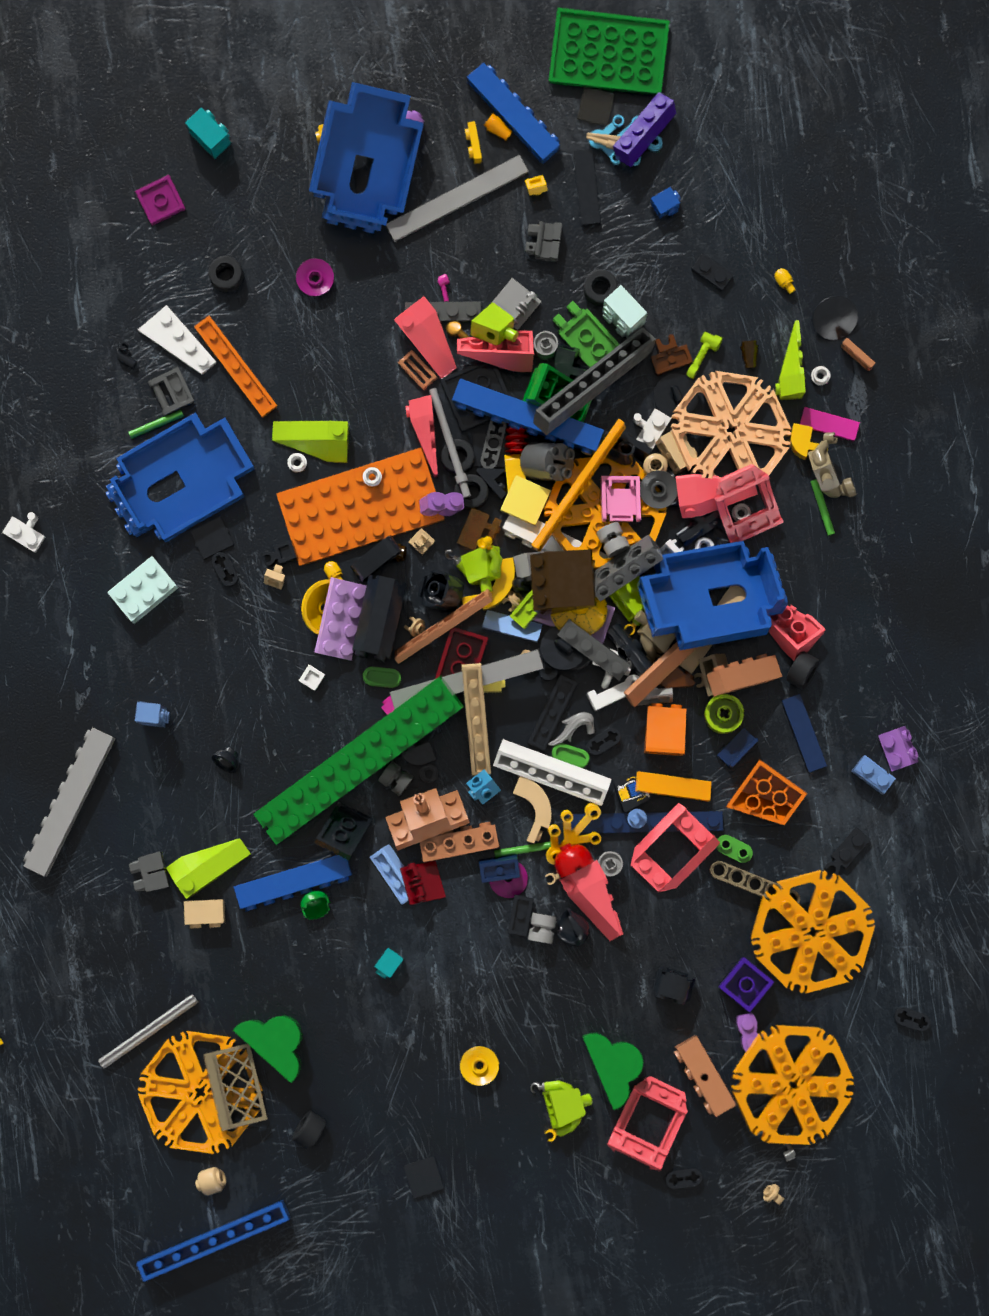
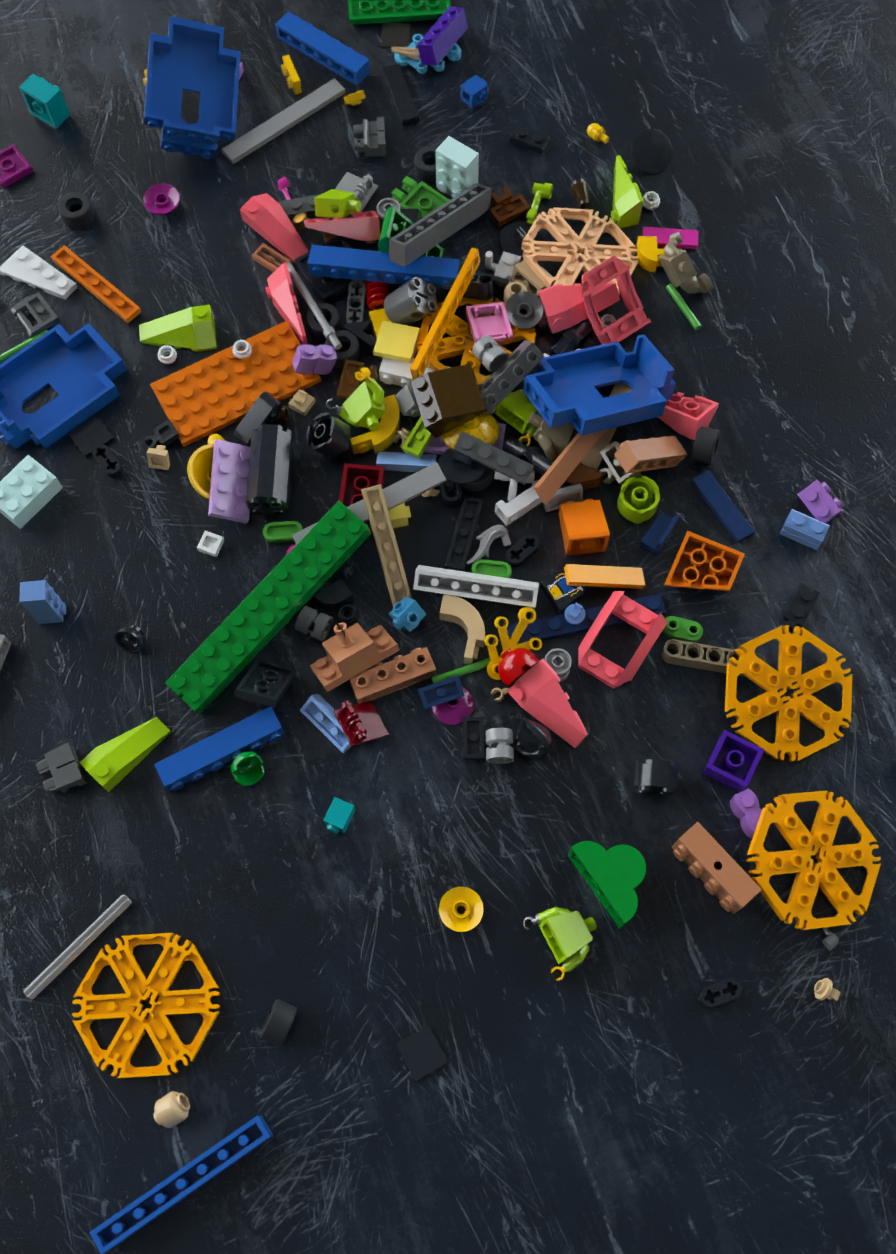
camera: 15 degrees left, 15 degrees down
(204, 912) = (126, 799): tan brick -> none
(219, 1094) = (166, 998): dark tan fence -> none
(275, 1042) = (225, 924): green brick -> none
(417, 627) = (310, 478): tan plate -> none
(443, 626) = (336, 465): nougat tile -> none
(497, 126) = (309, 60): light orange cone -> none
(519, 587) = (404, 419): black arm -> none
(636, 1147) = (661, 966): coral wedge -> none
(857, 354) = (680, 176): nougat tile -> none

